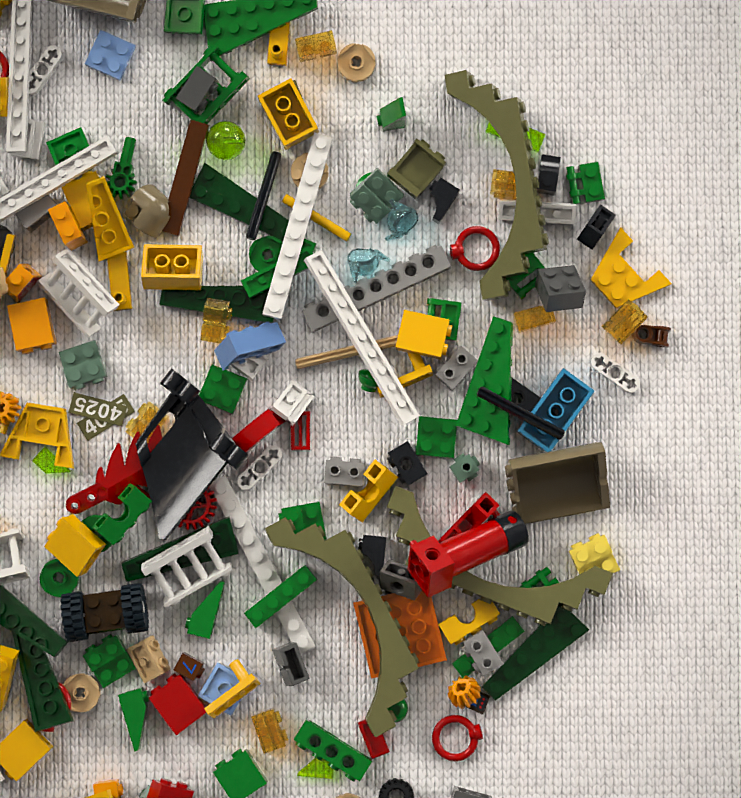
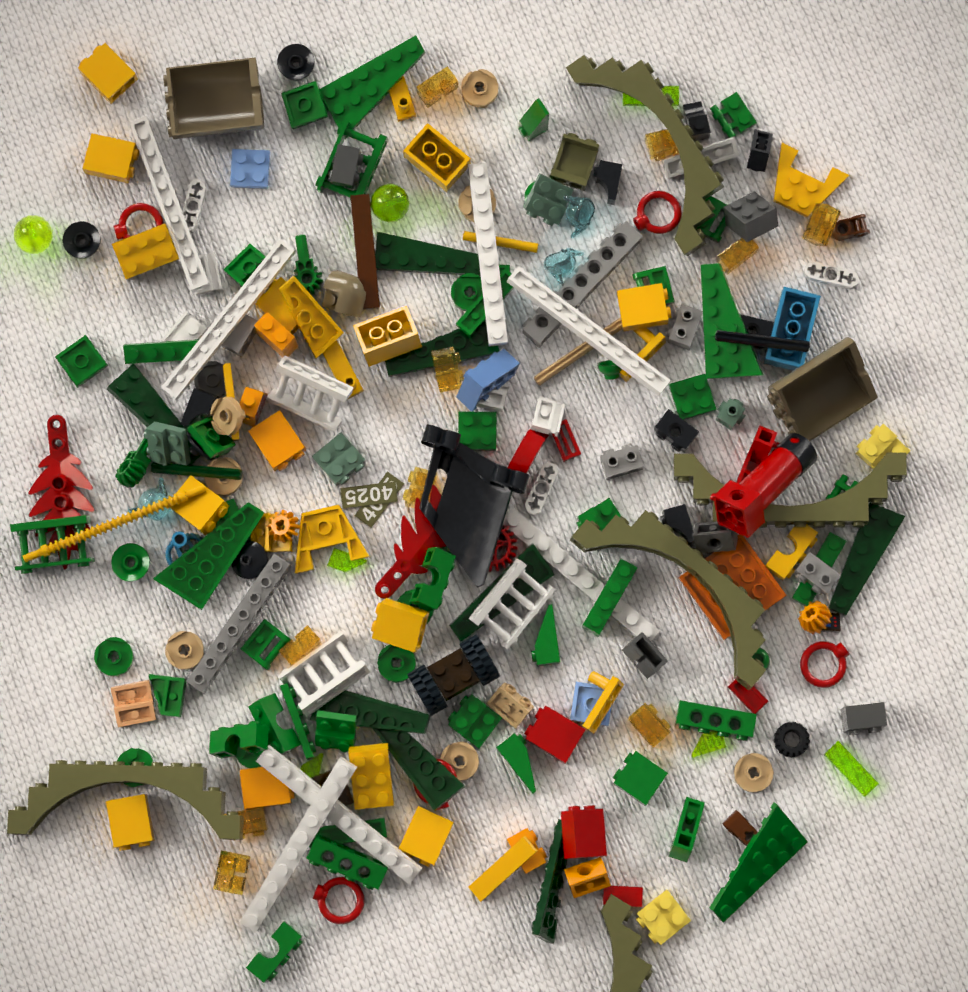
camera: 25 degrees left, 5 degrees down
(189, 666) = (551, 696): reddish brown brick -> none
(263, 195) = (444, 239): black axle -> none
(363, 502) = (657, 457): yellow arch -> none

